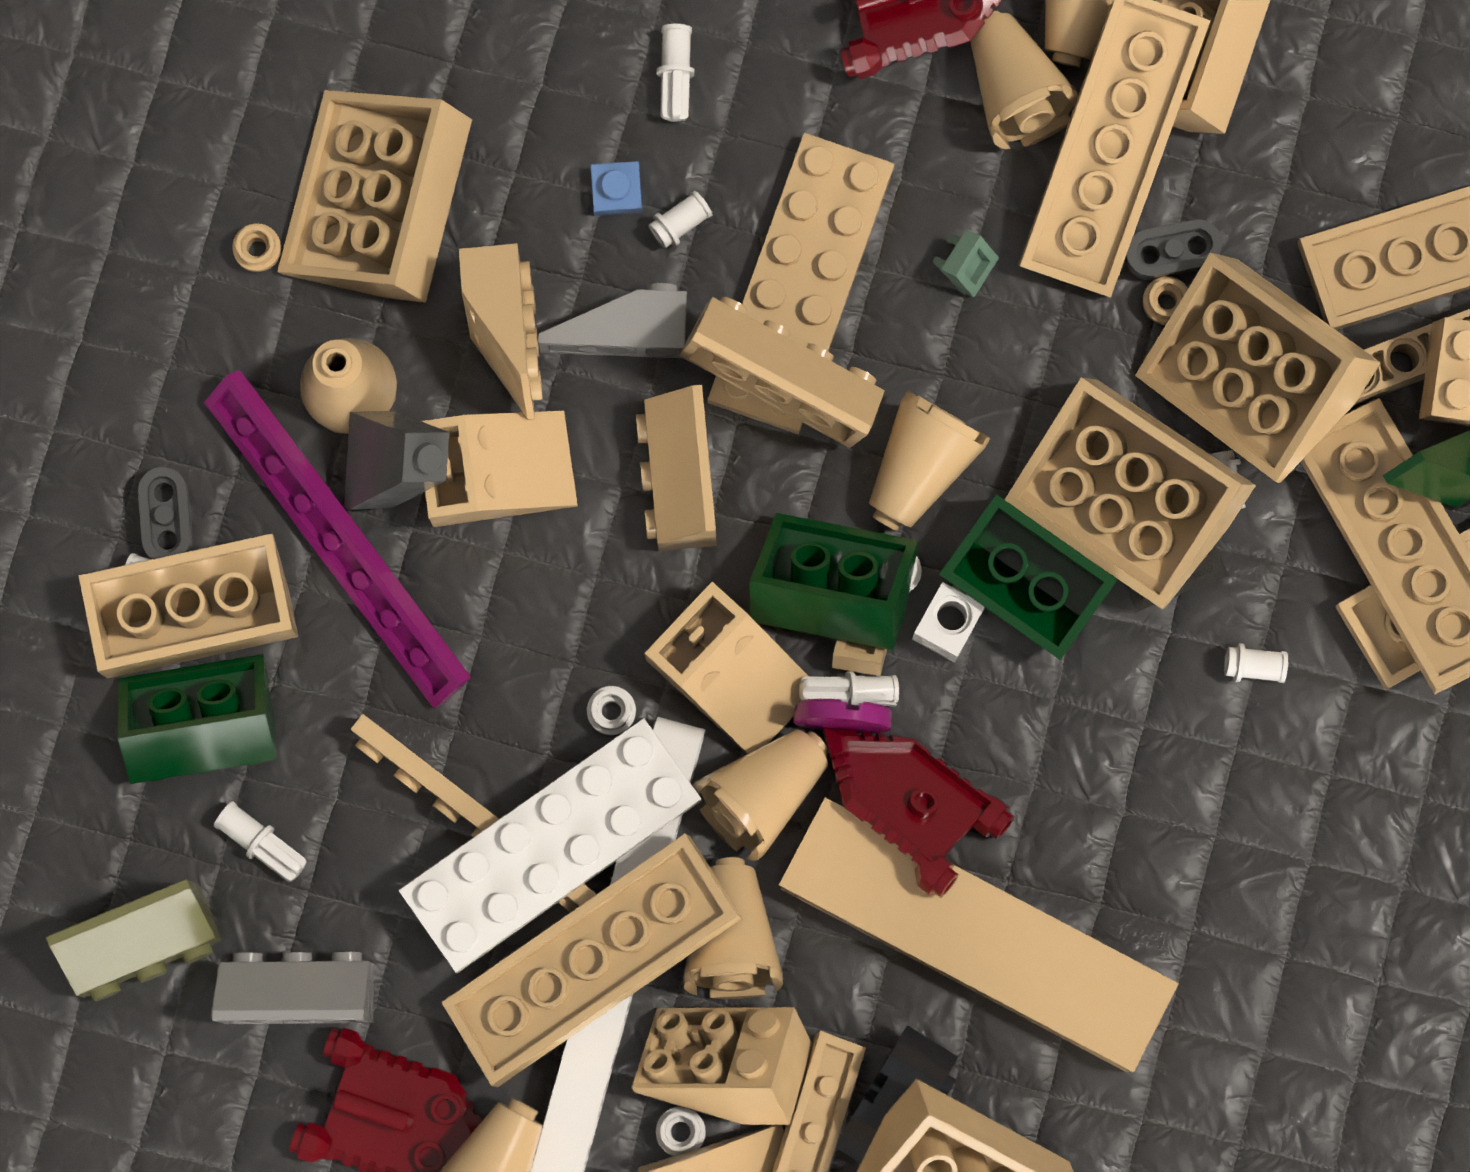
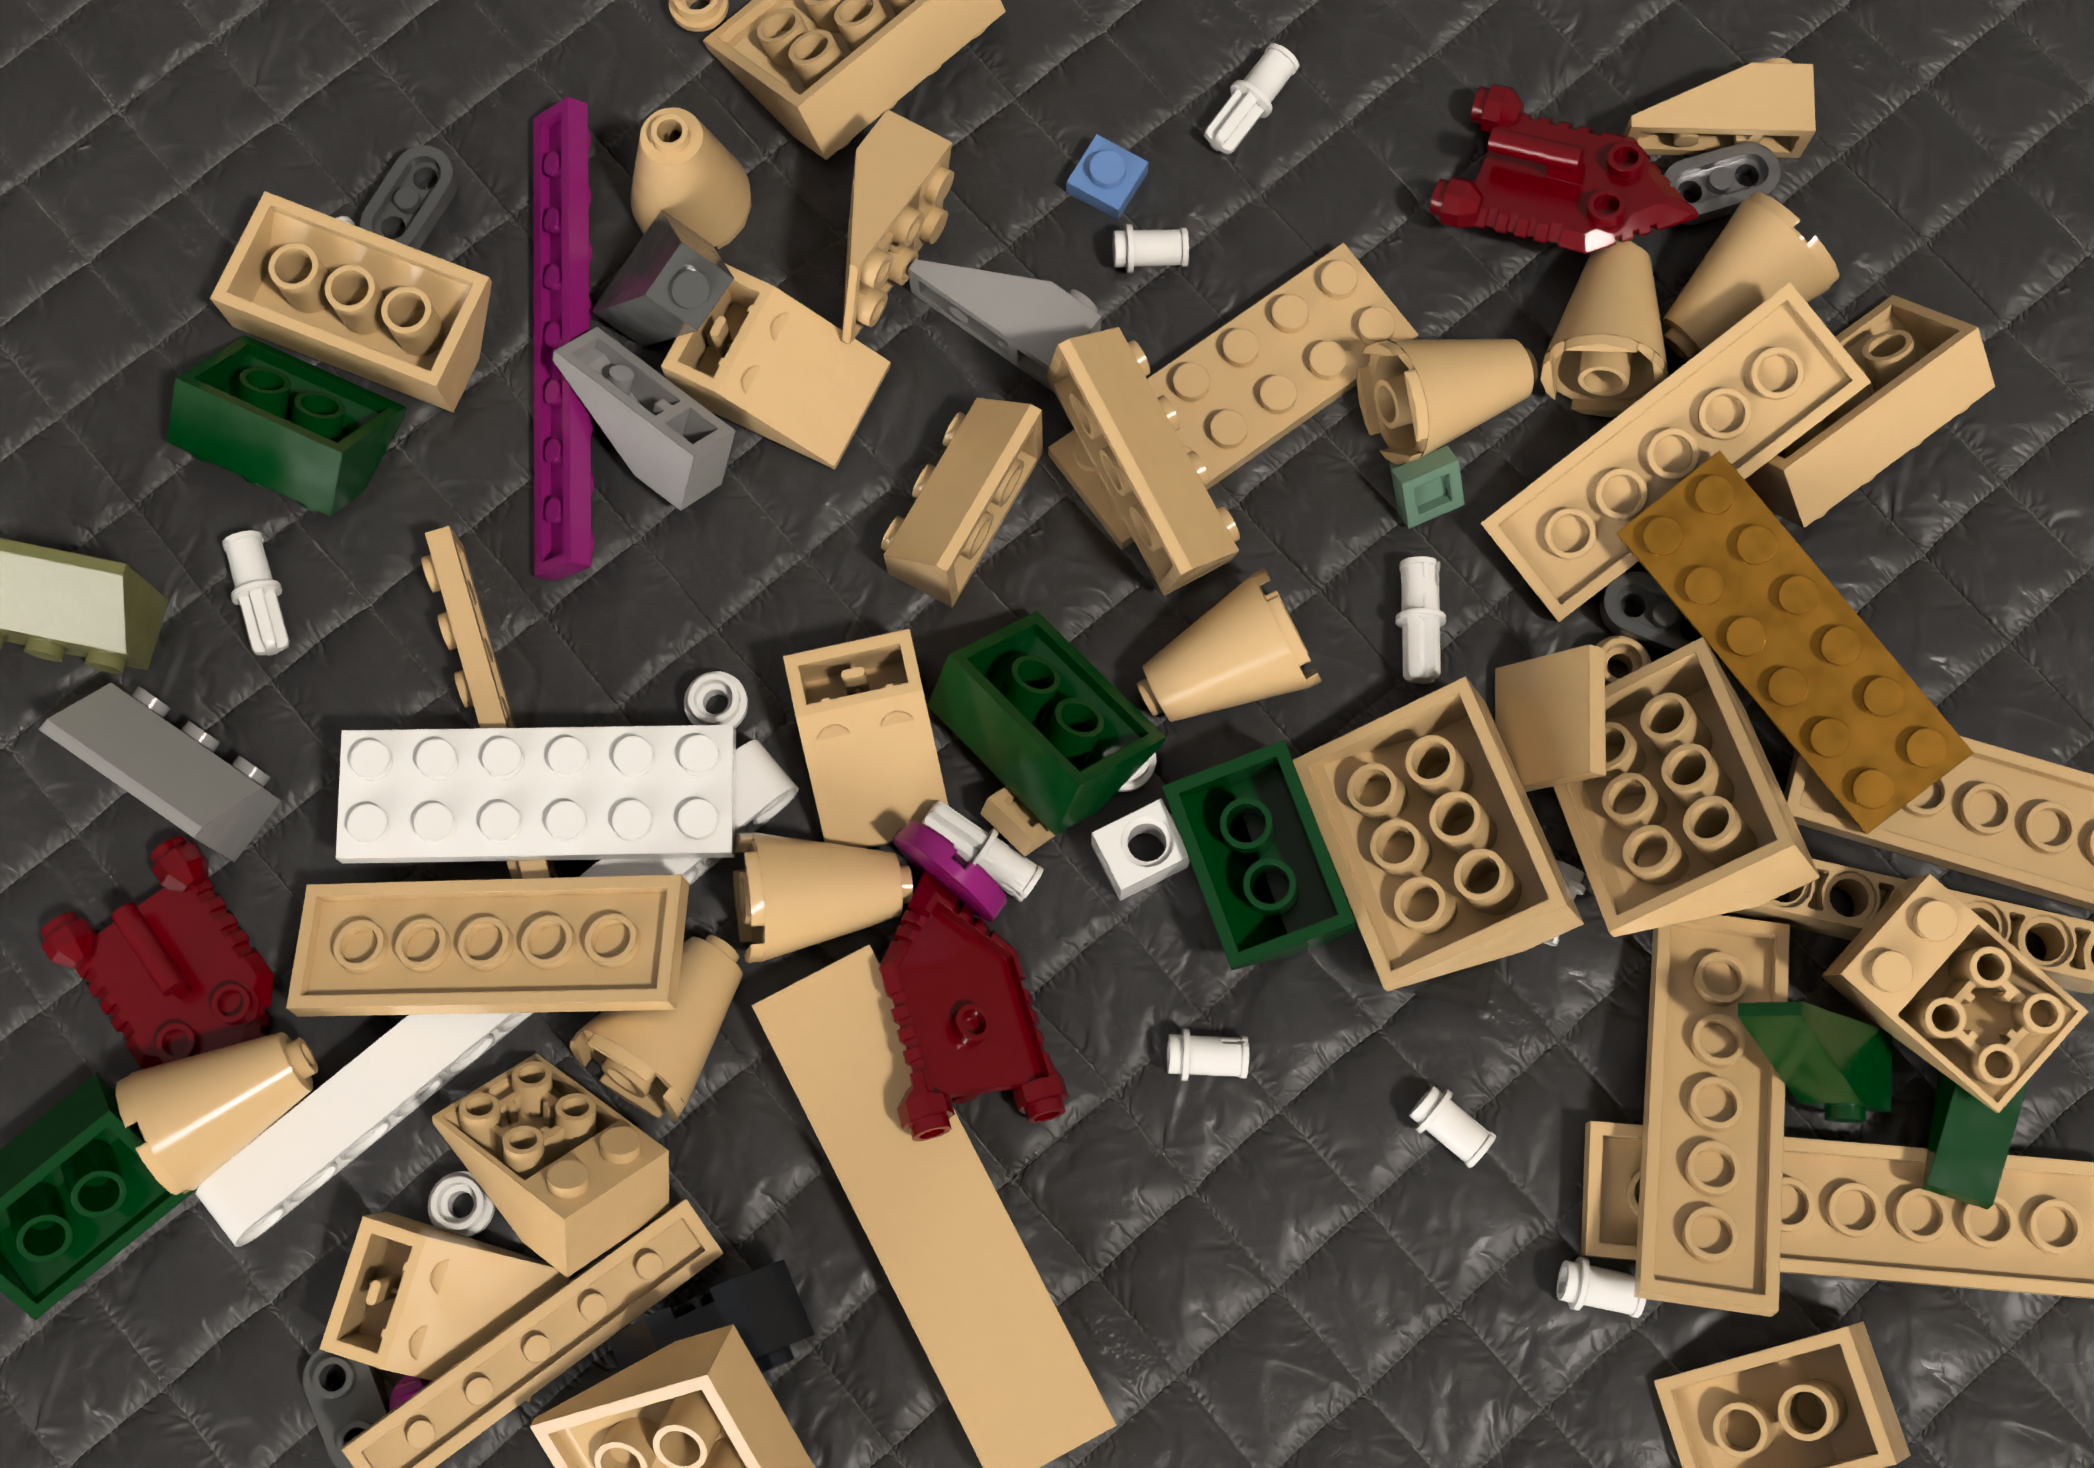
camera: 35 degrees right, 5 degrees down
(438, 556) = (649, 420): none -> light grey slope
(935, 195) = (1439, 389): none -> tan cone
(1022, 354) = (1420, 619): none -> white axle
(1077, 723) = (1207, 1055): none -> white pin
(1150, 364) = (1554, 716): none -> tan tile
(1266, 218) = (1794, 643): none -> pearl gold plate
(1408, 702) = (1598, 1288): none -> white pin

